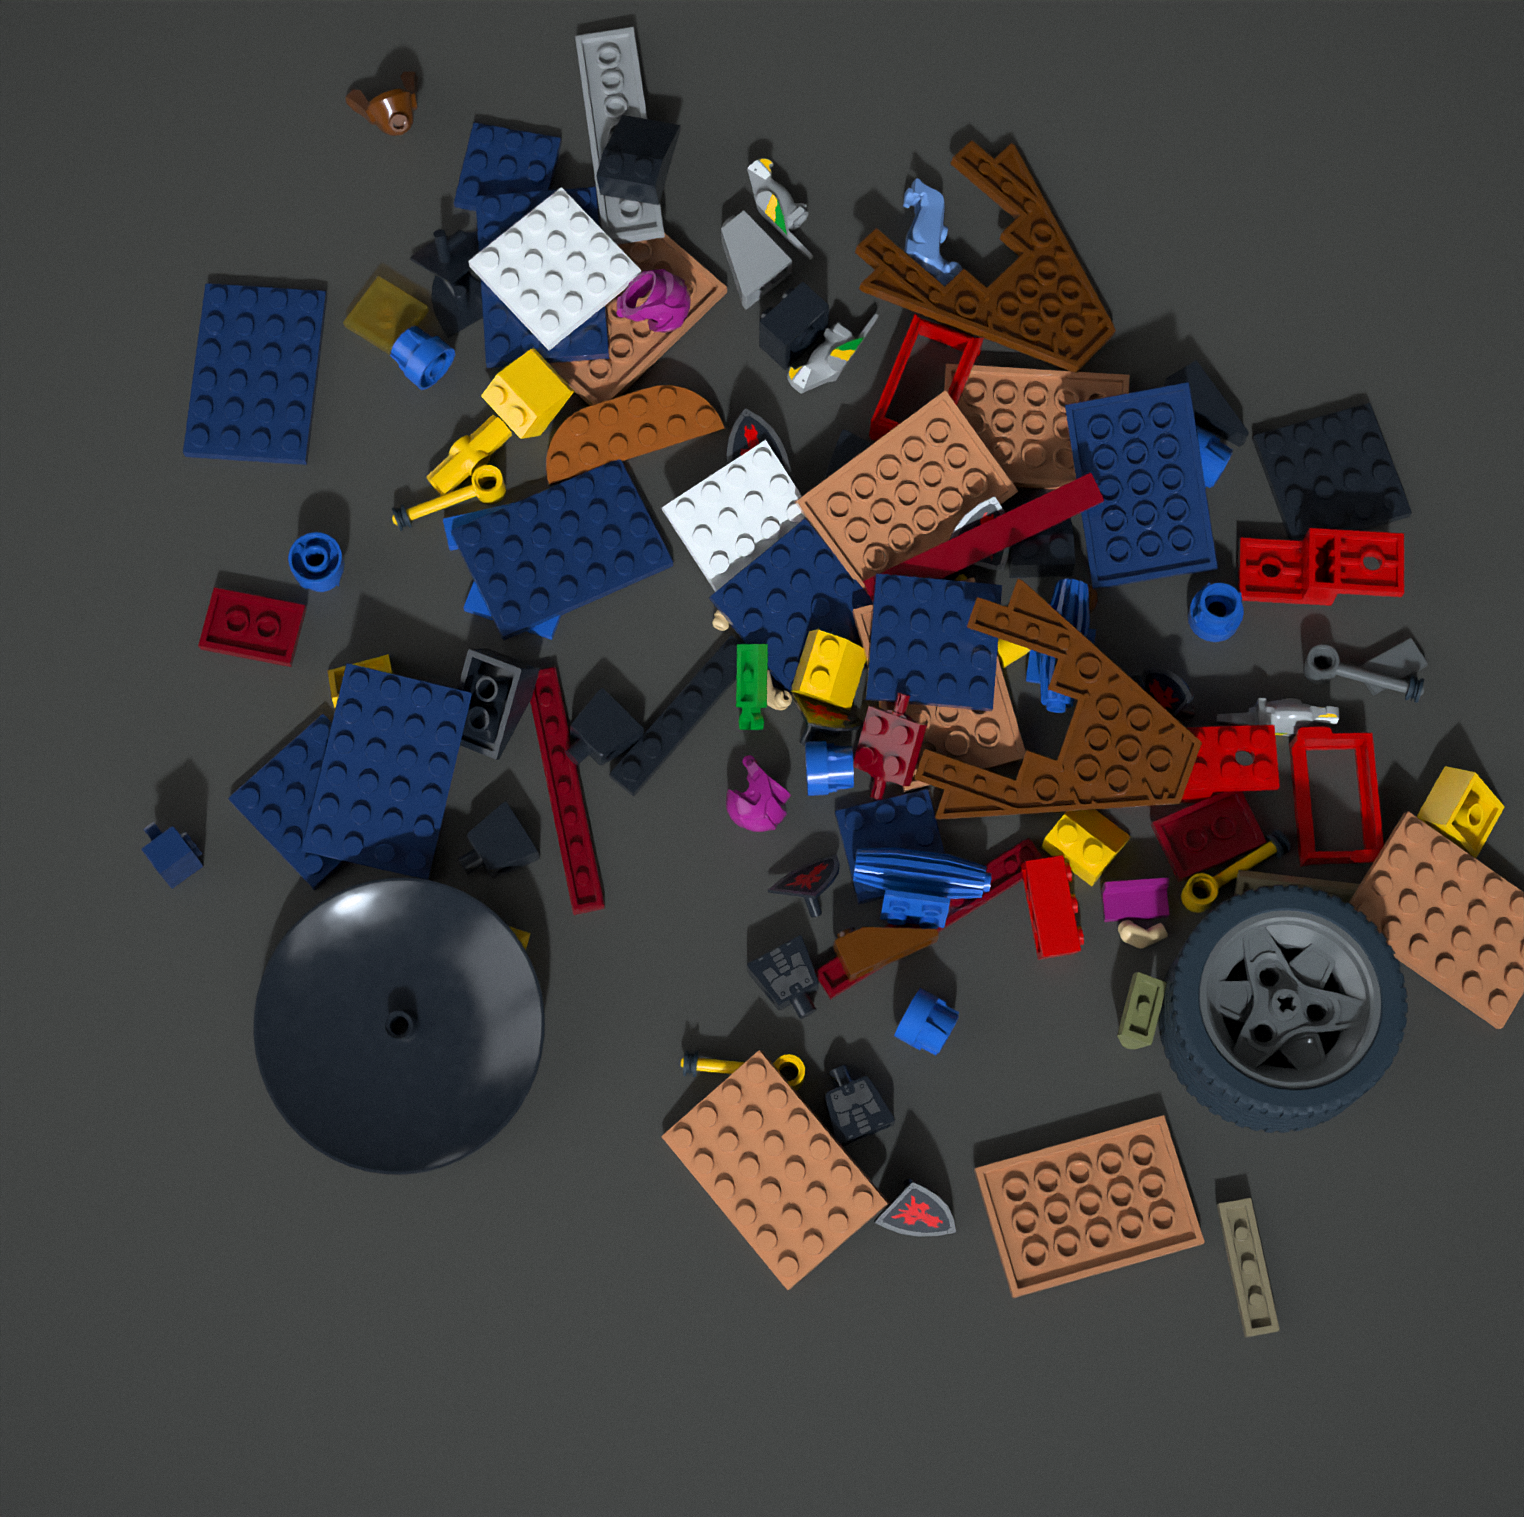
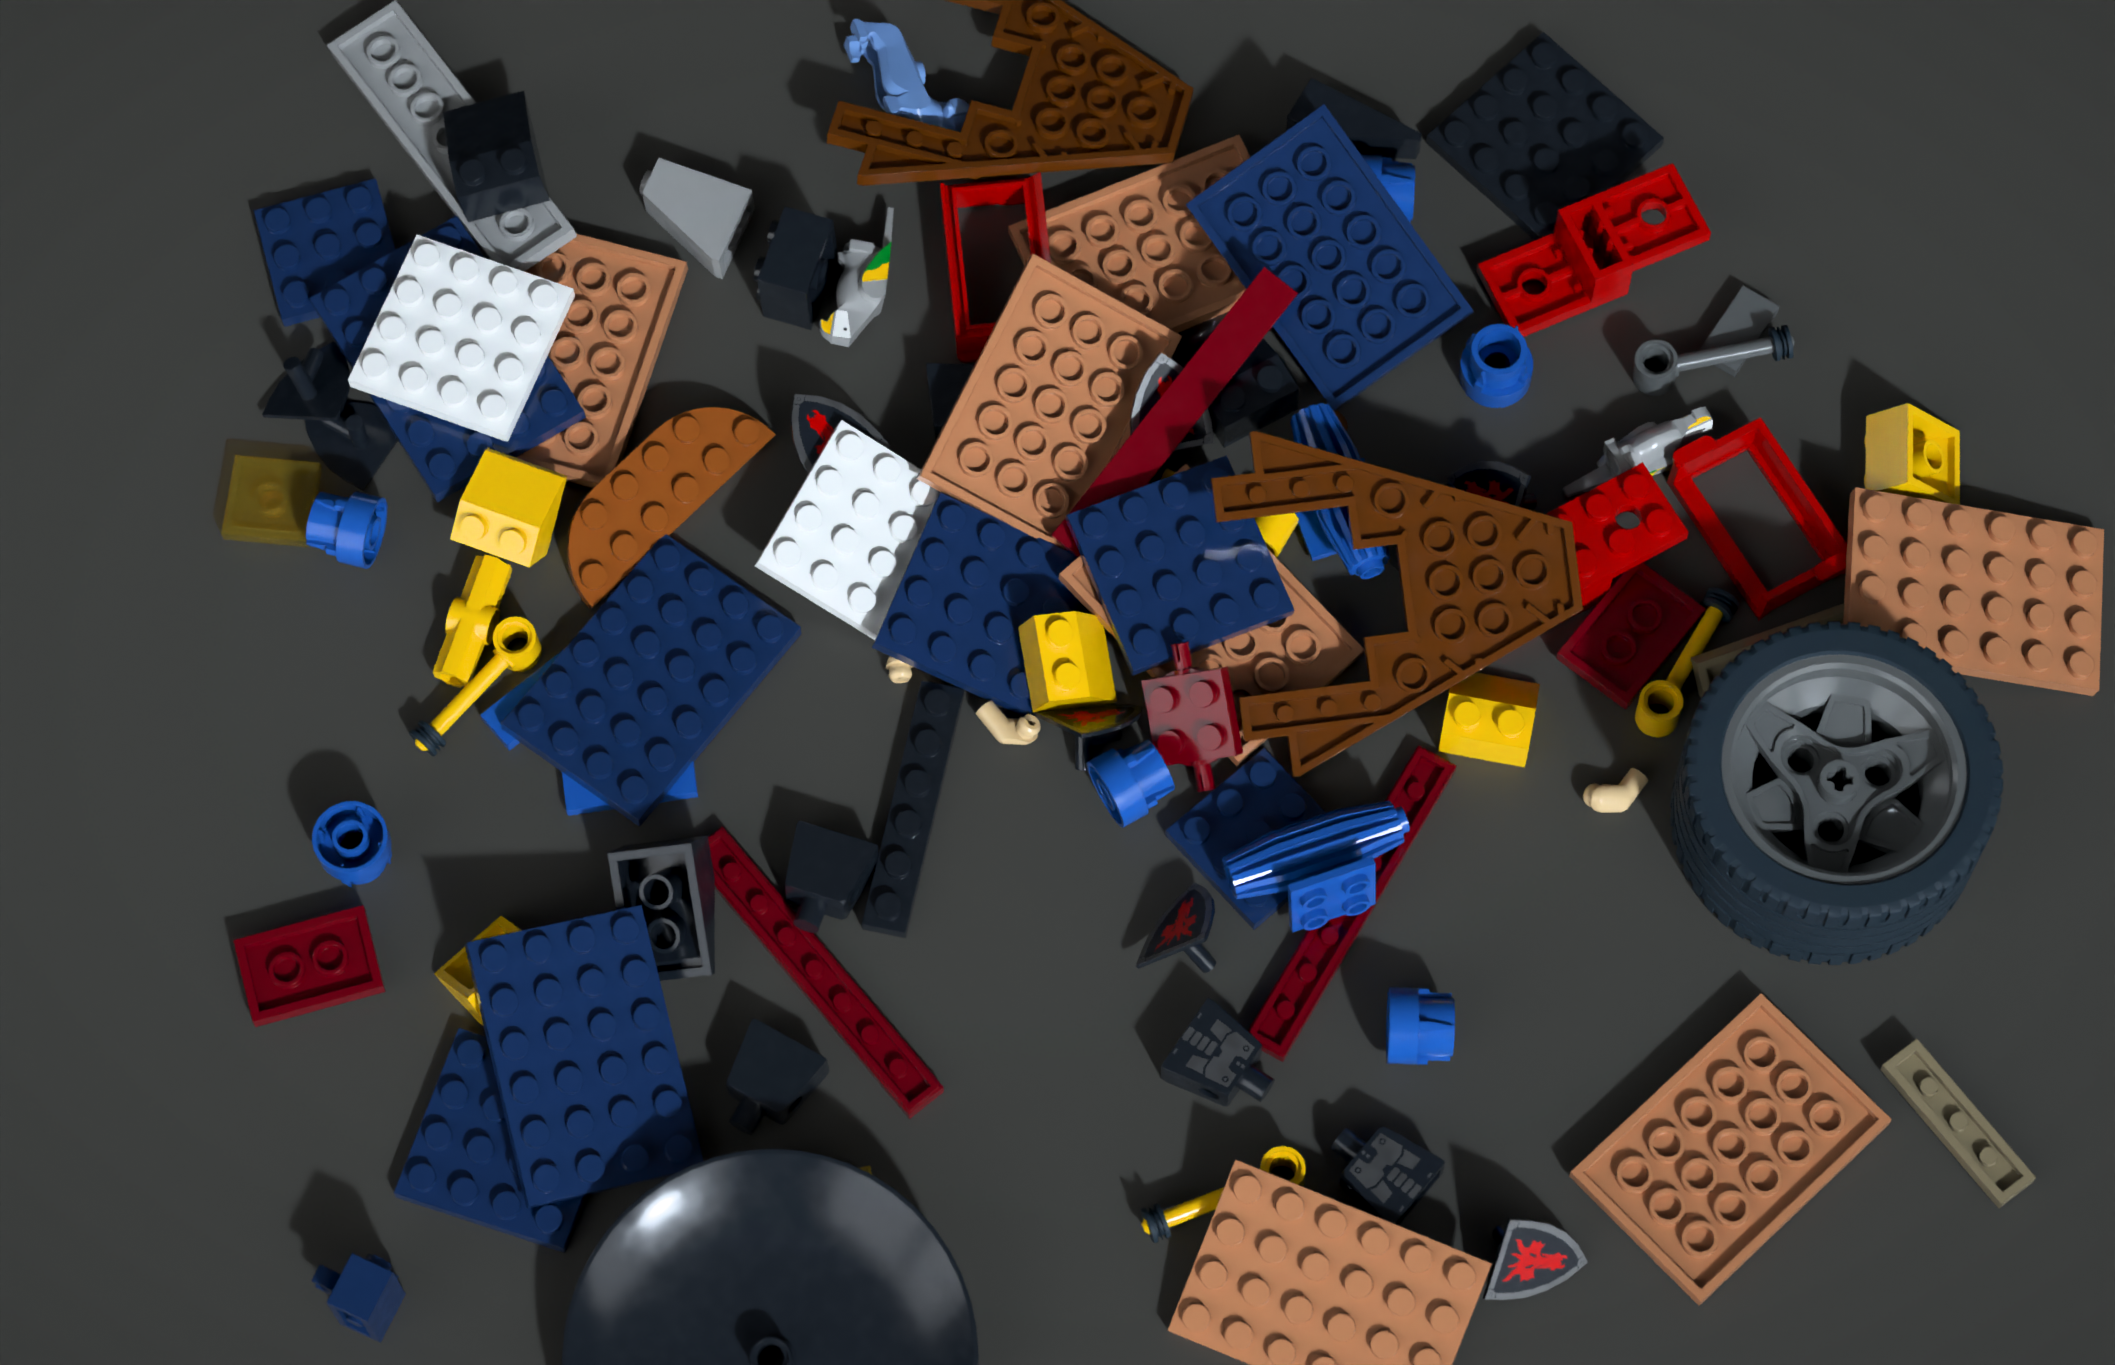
camera: 25 degrees left, 5 degrees down
(255, 374) = (140, 652): dark blue plate -> none
(391, 110) = (144, 245): reddish brown piece -> none
(665, 305) = (628, 322): magenta helmet -> none
(751, 684) = (981, 726): green plate -> none
(762, 804) = (1074, 864): magenta helmet -> none
(776, 203) = (693, 132): light grey animal -> none
(875, 947) = (1308, 966): reddish brown slope -> none
(1051, 907) = (1492, 813): red brick -> none
(1135, 899) = (1586, 755): magenta panel -> none
(1141, 1011) = (1670, 881): olive tile -> none

